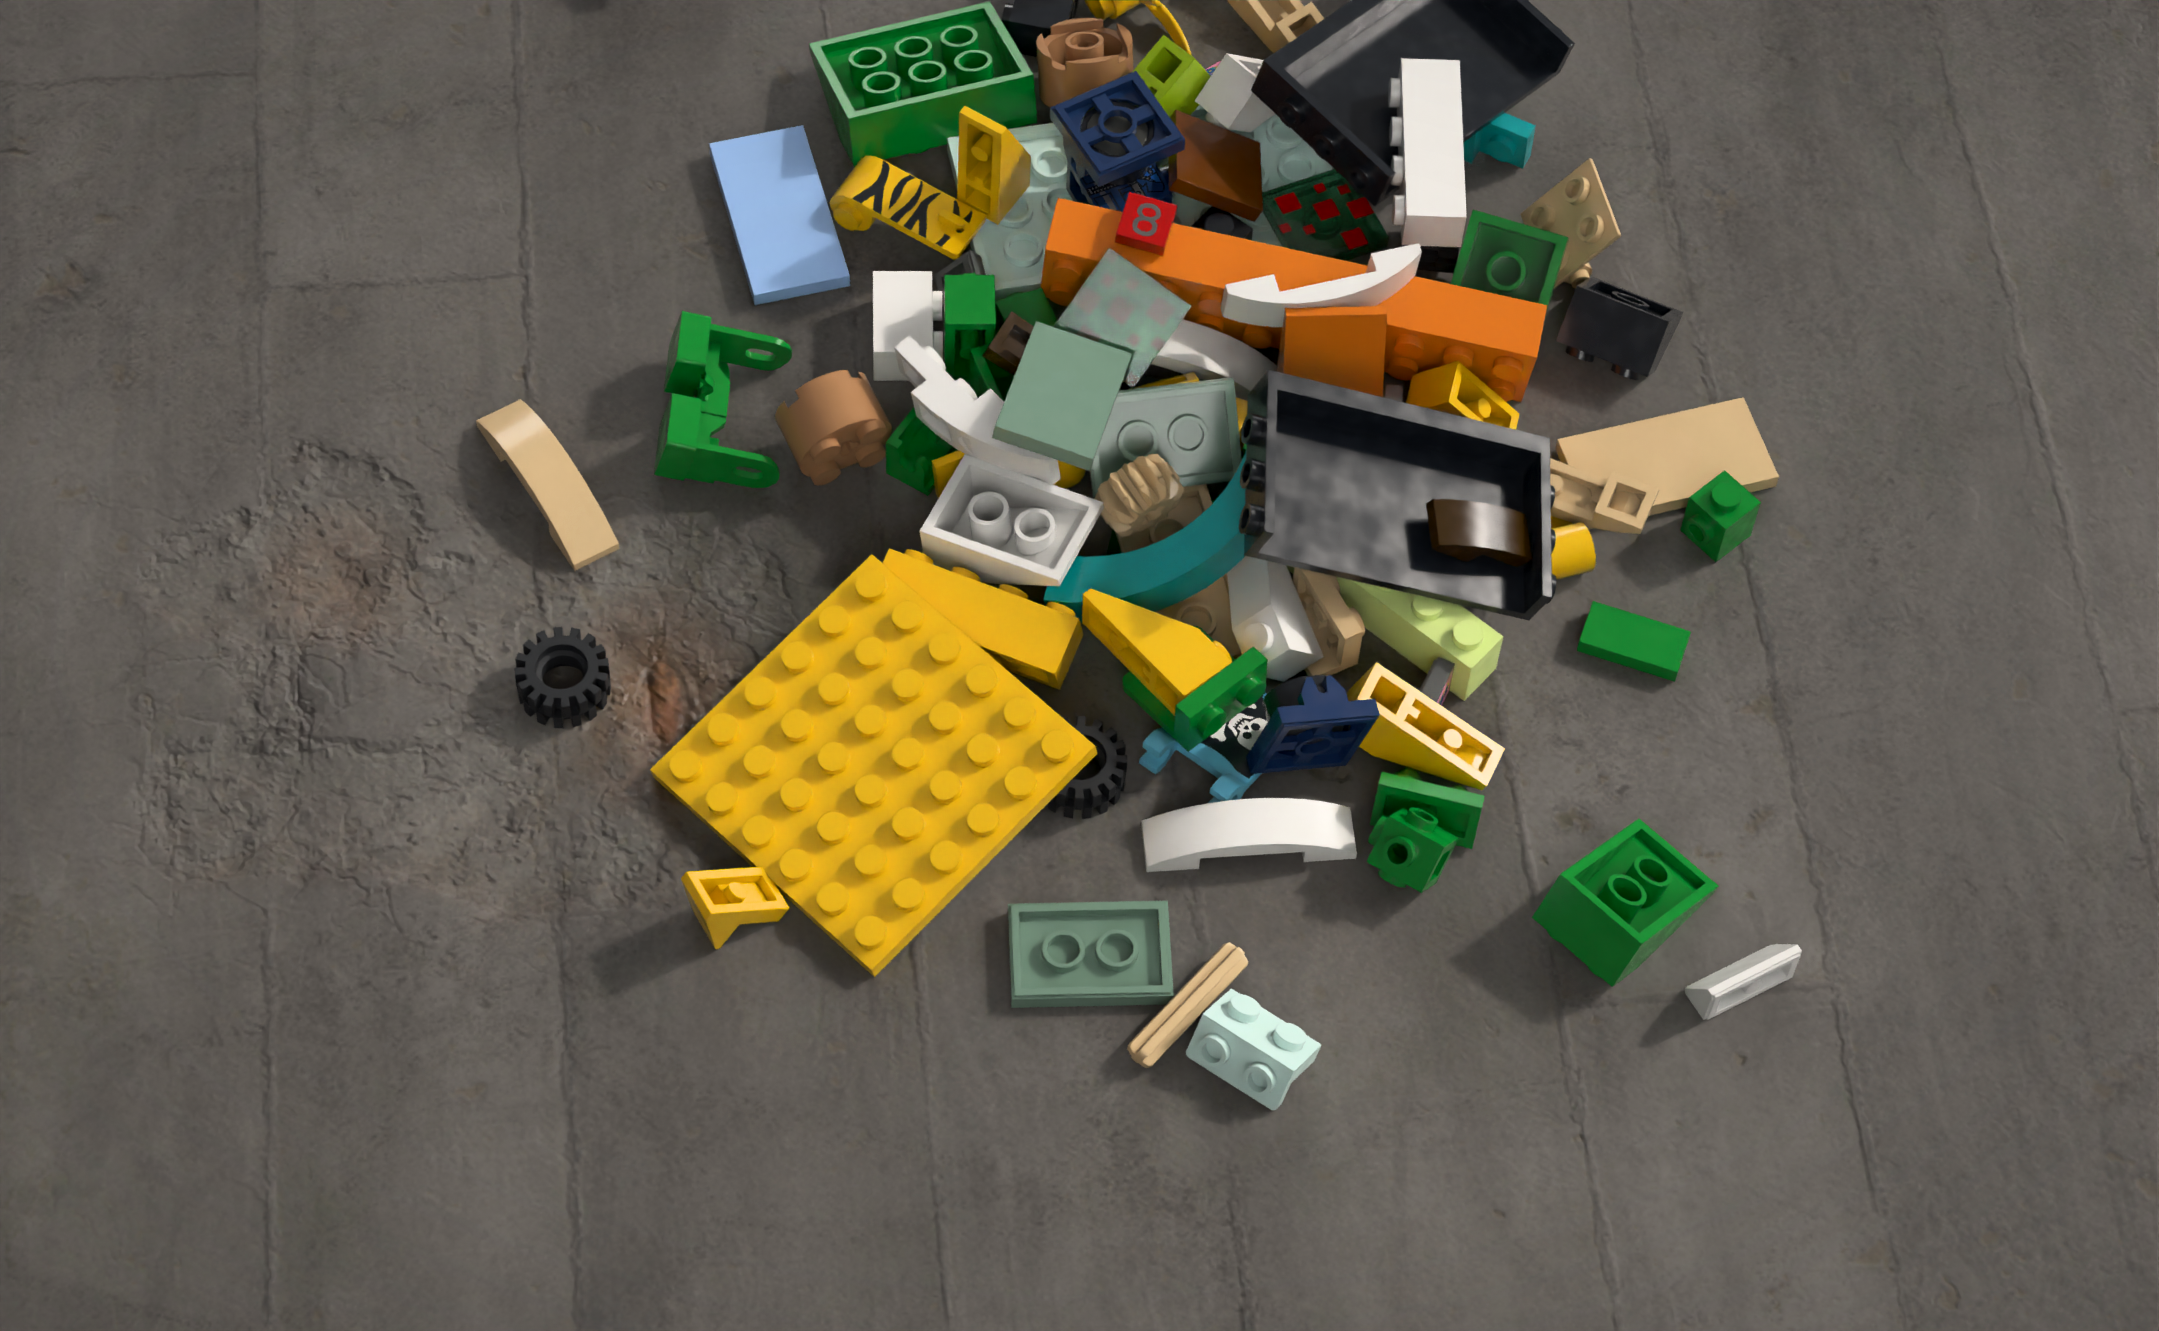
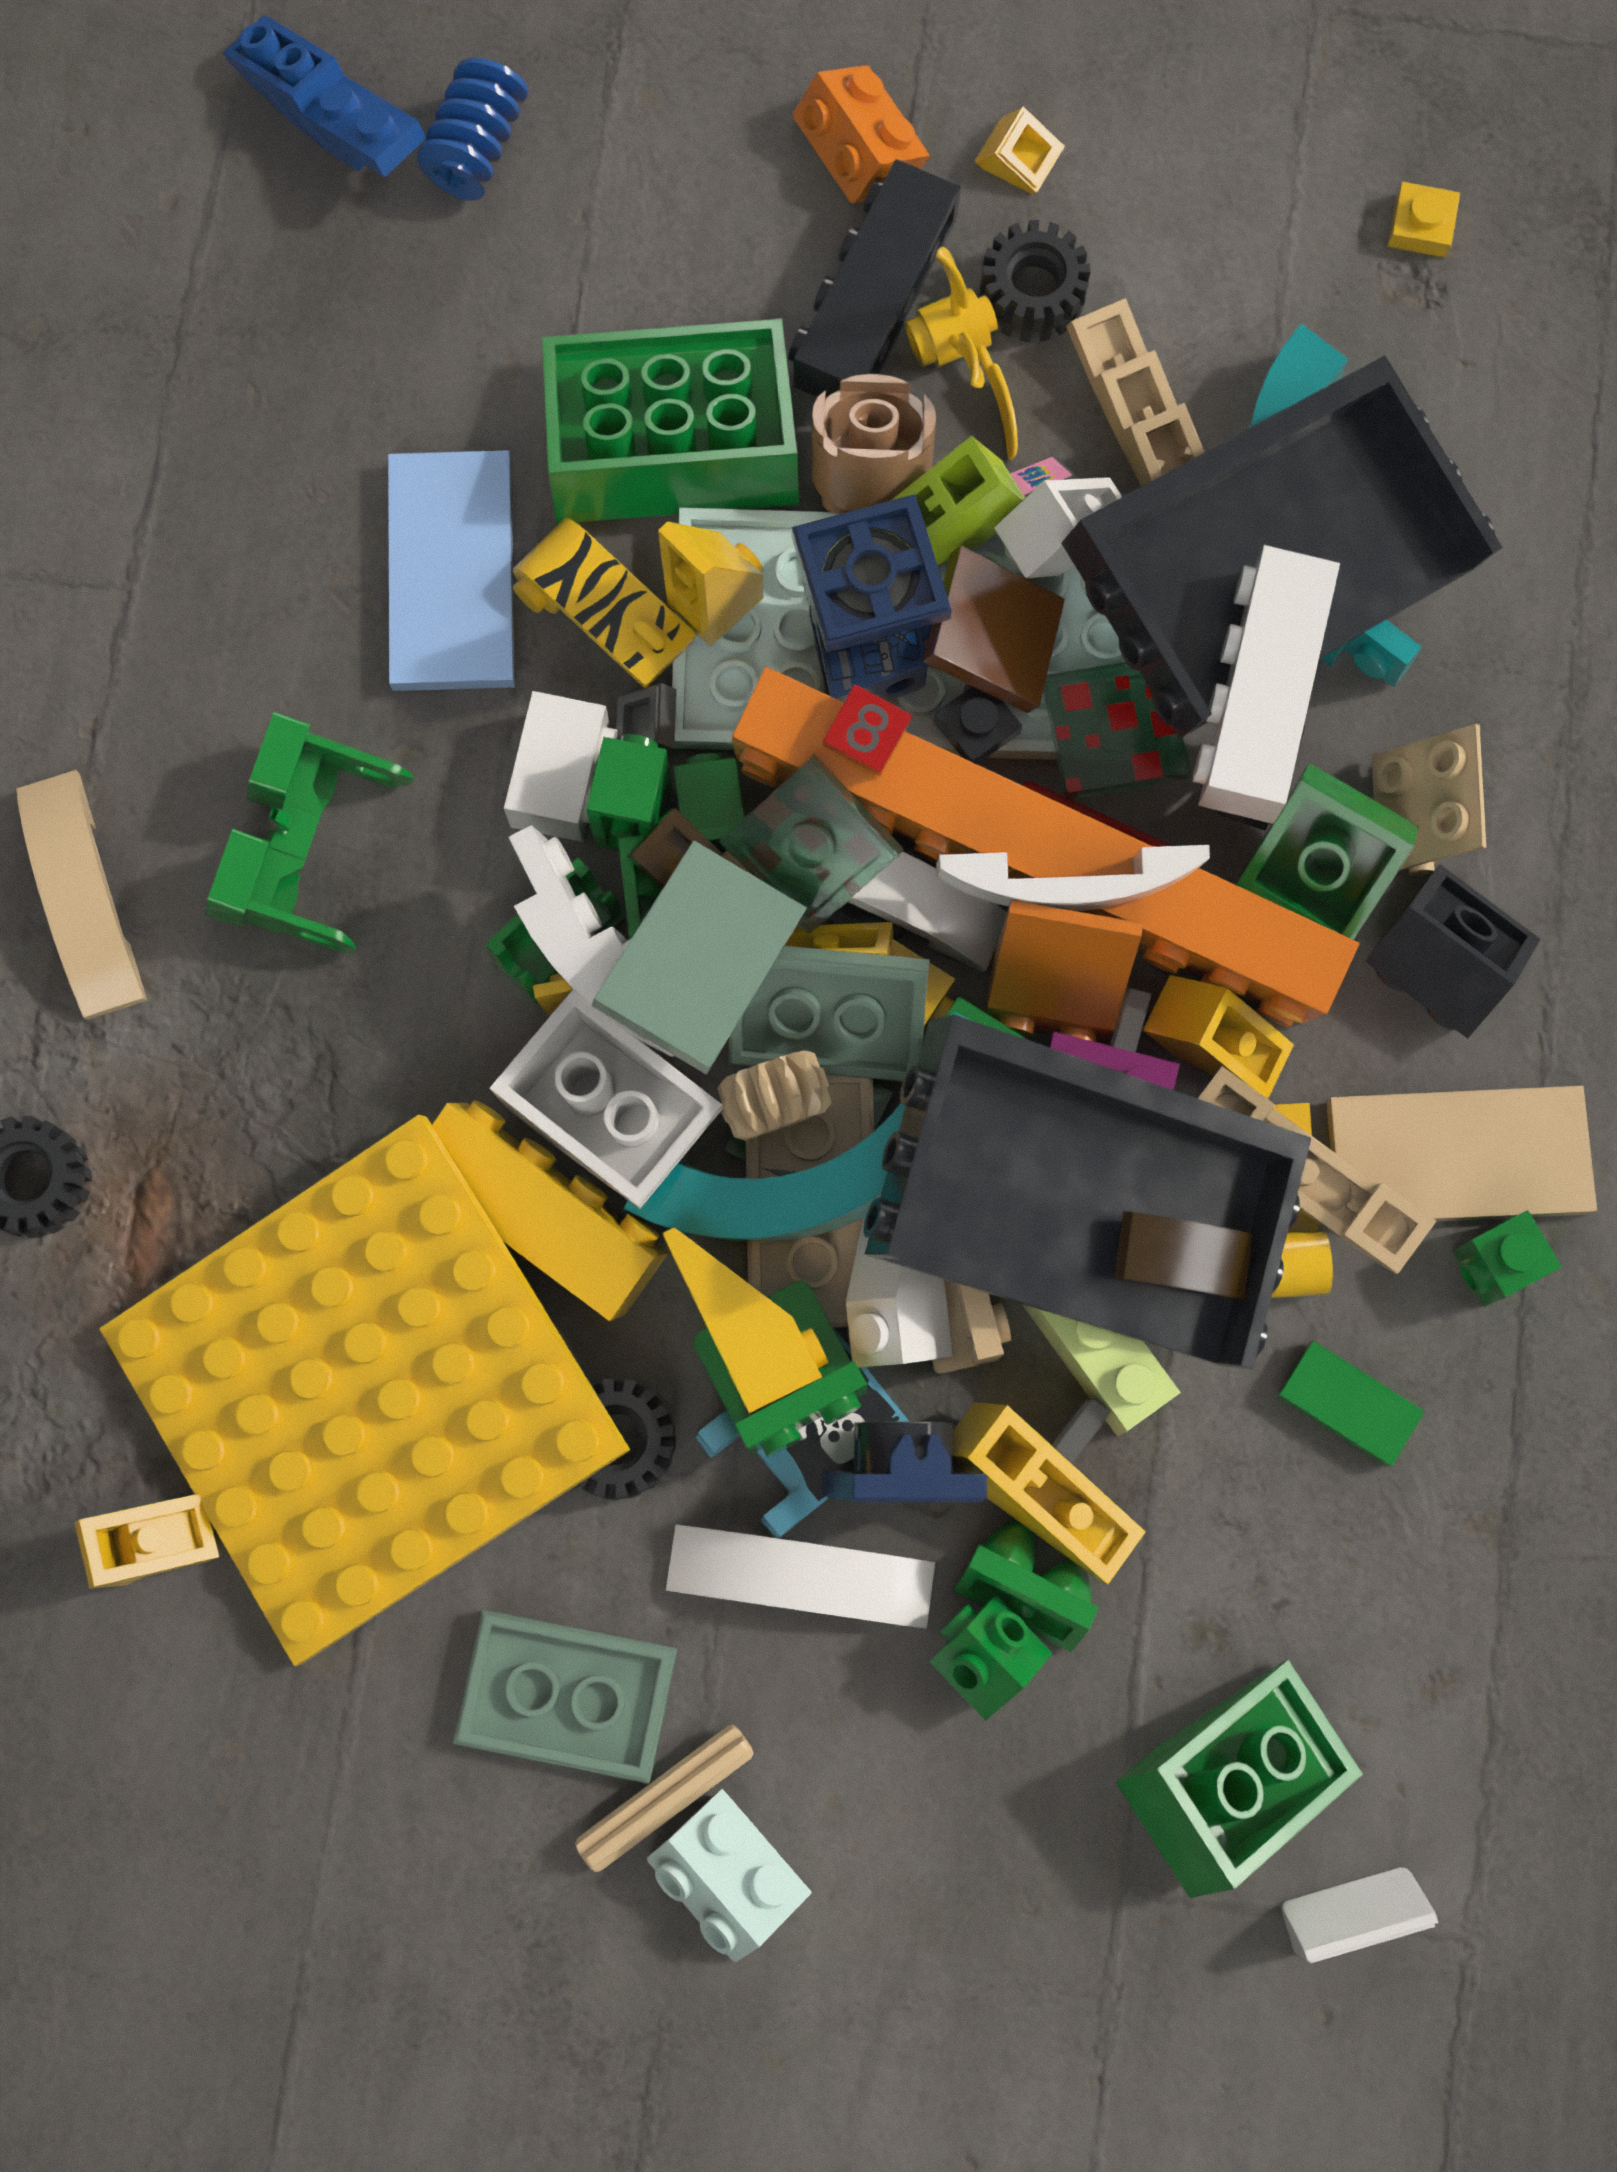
camera: 15 degrees right, 20 degrees up
(834, 425) = (431, 902): medium nougat brick -> none

